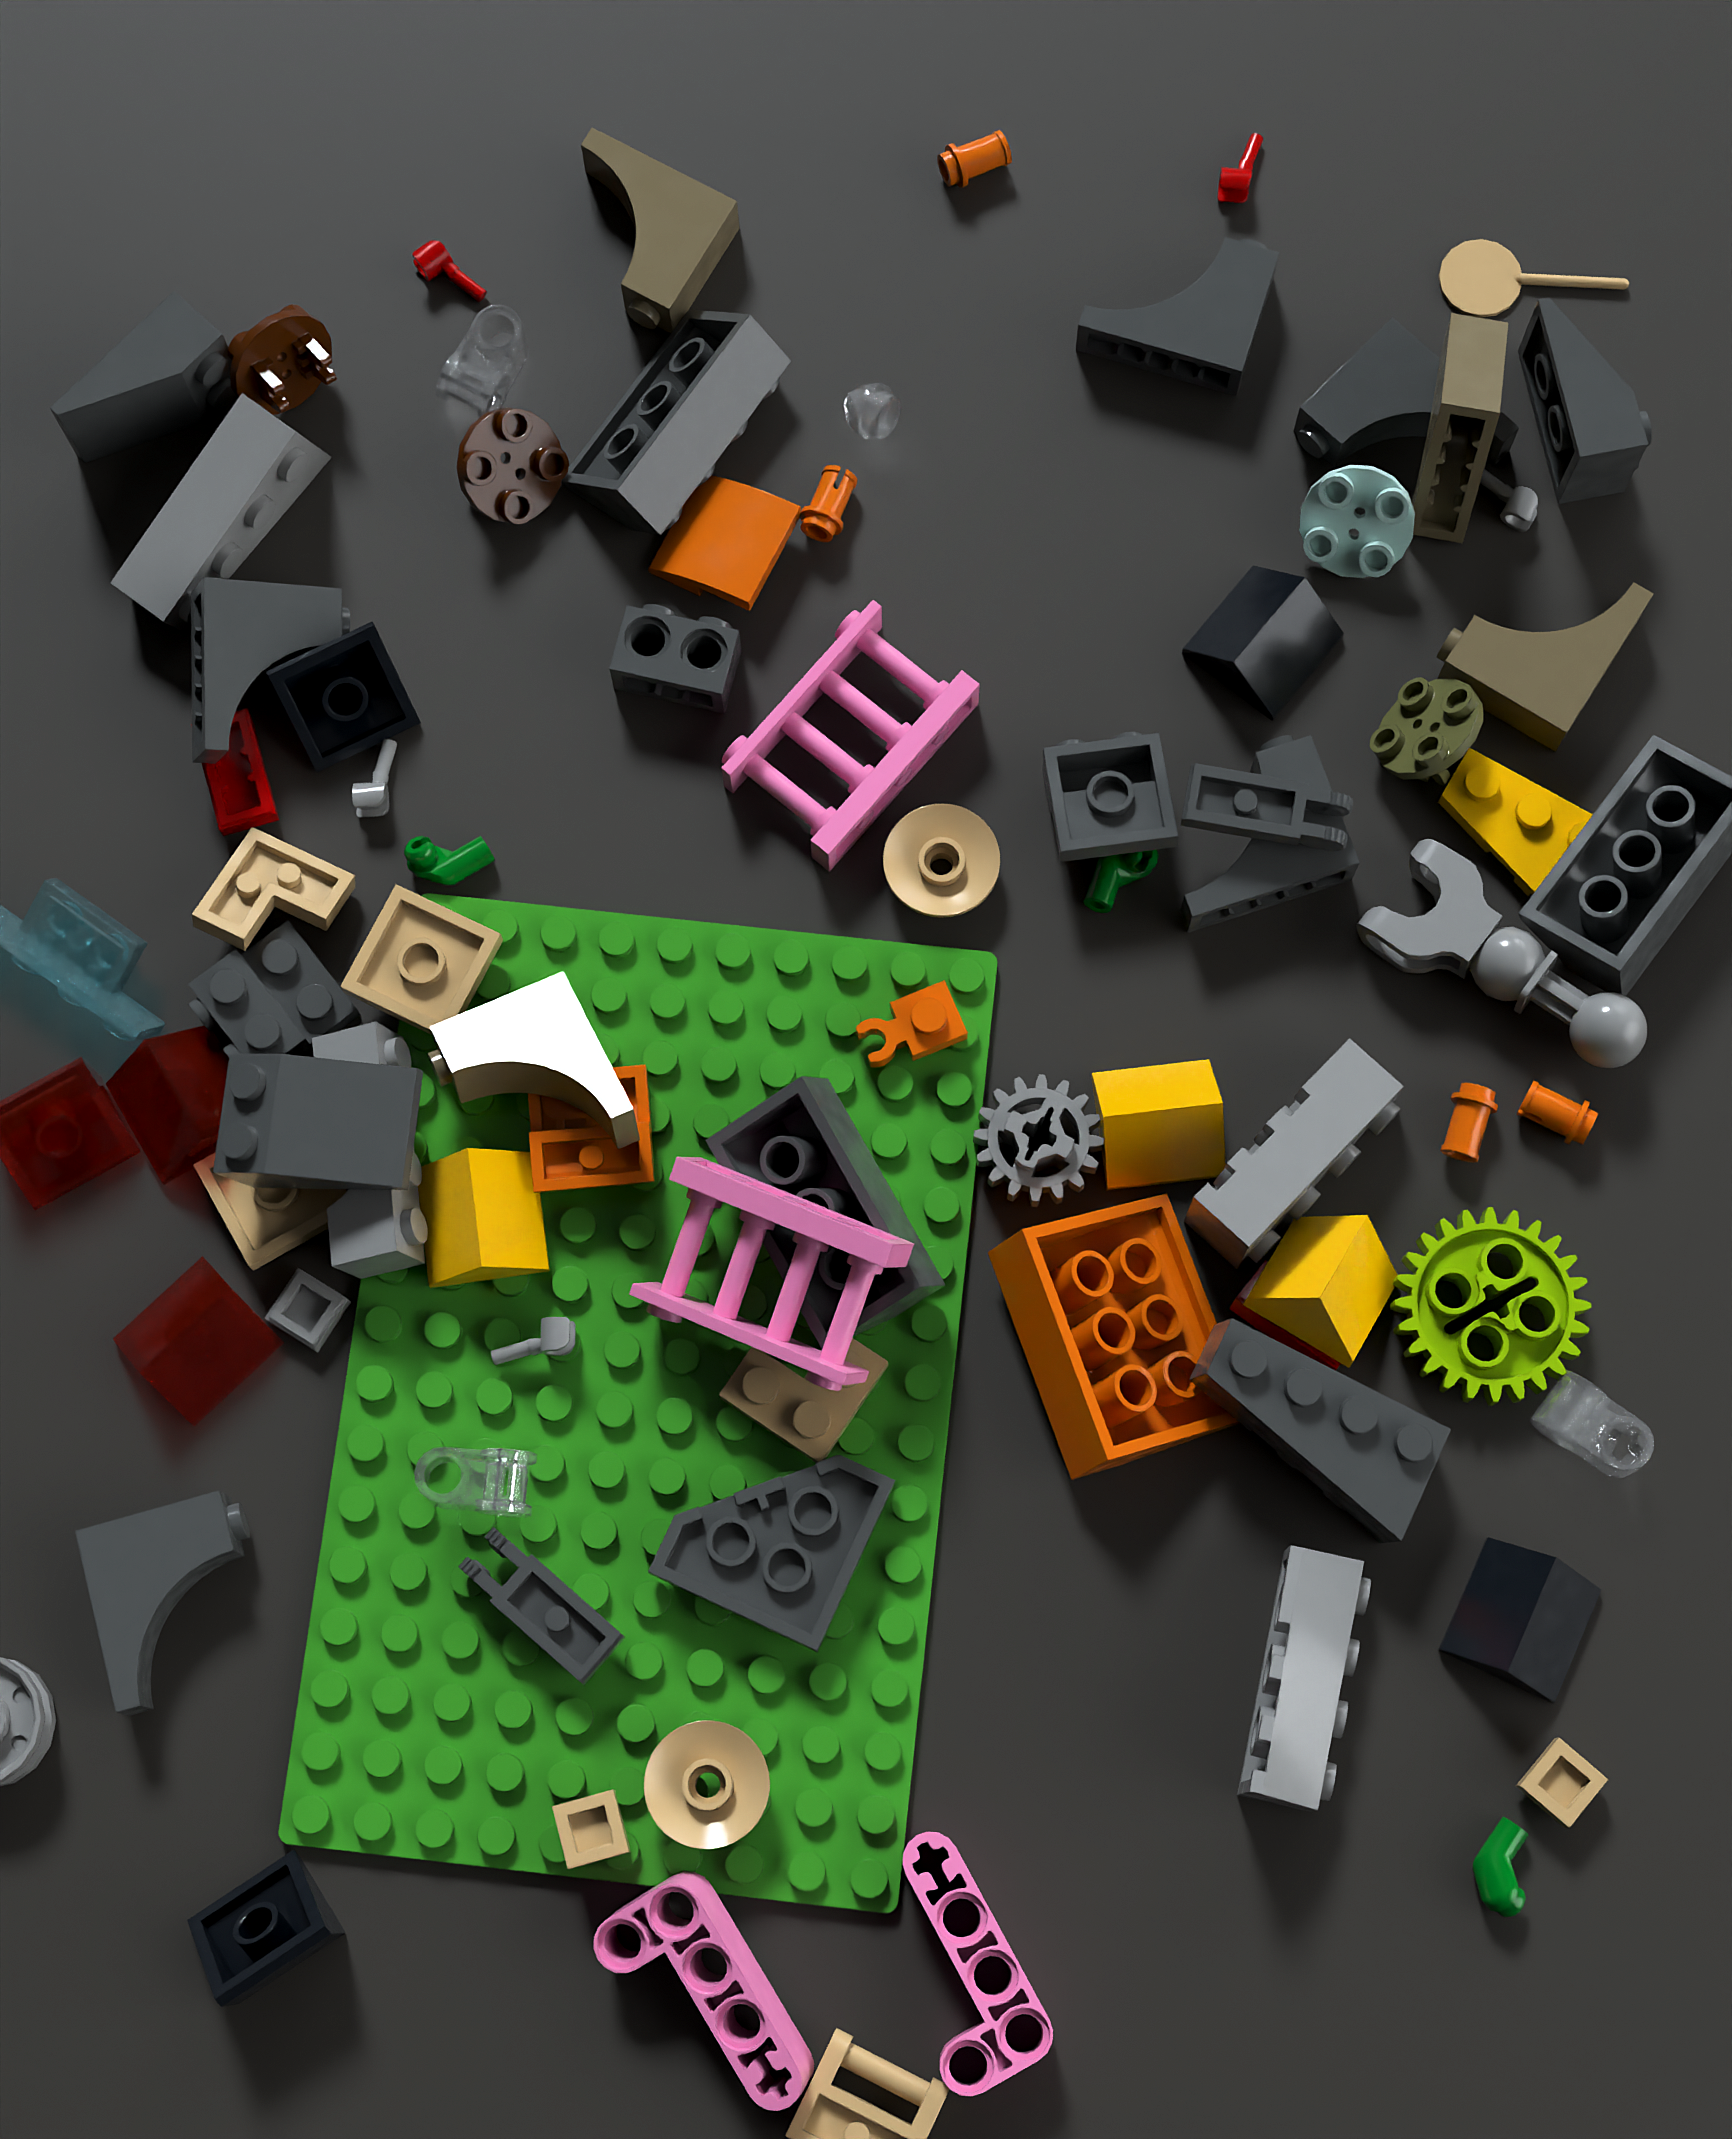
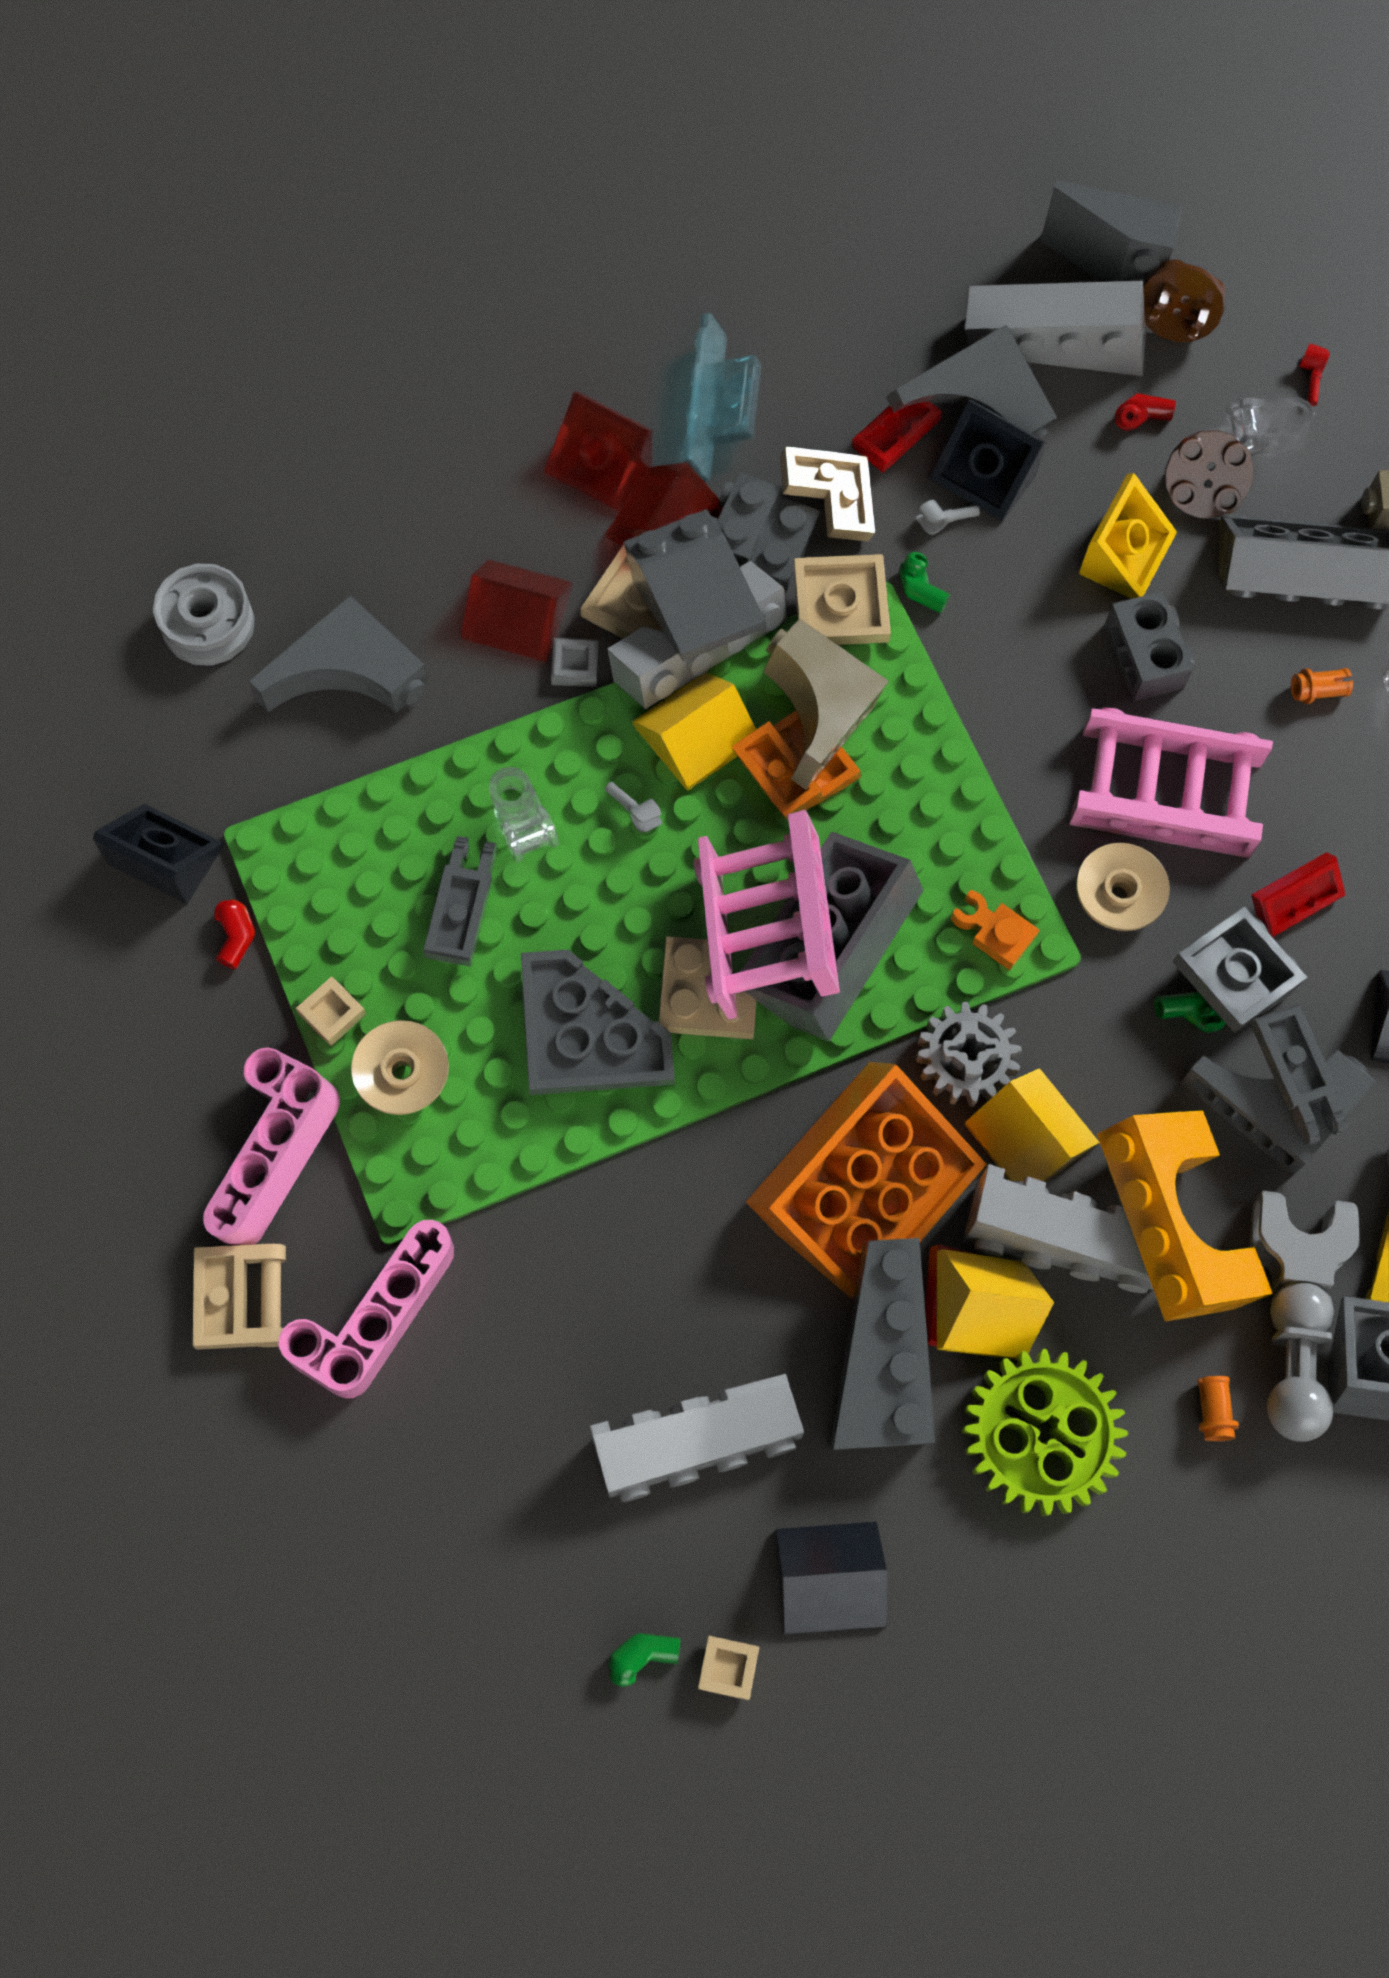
camera: 55 degrees right, 5 degrees down
(375, 484) = (1141, 408): none -> red arm
(418, 1887) = (239, 932): none -> red arm
(536, 602) = (1128, 541): none -> yellow slope
(726, 541) = (1251, 635): orange slope -> none
(1055, 680) = (1299, 894): none -> red plate
(1408, 1062) = (1183, 1270): none -> light orange arch
(1468, 1121) = (1169, 1347): orange pin -> none
(1584, 1417) = (1001, 1546): clear piece -> none

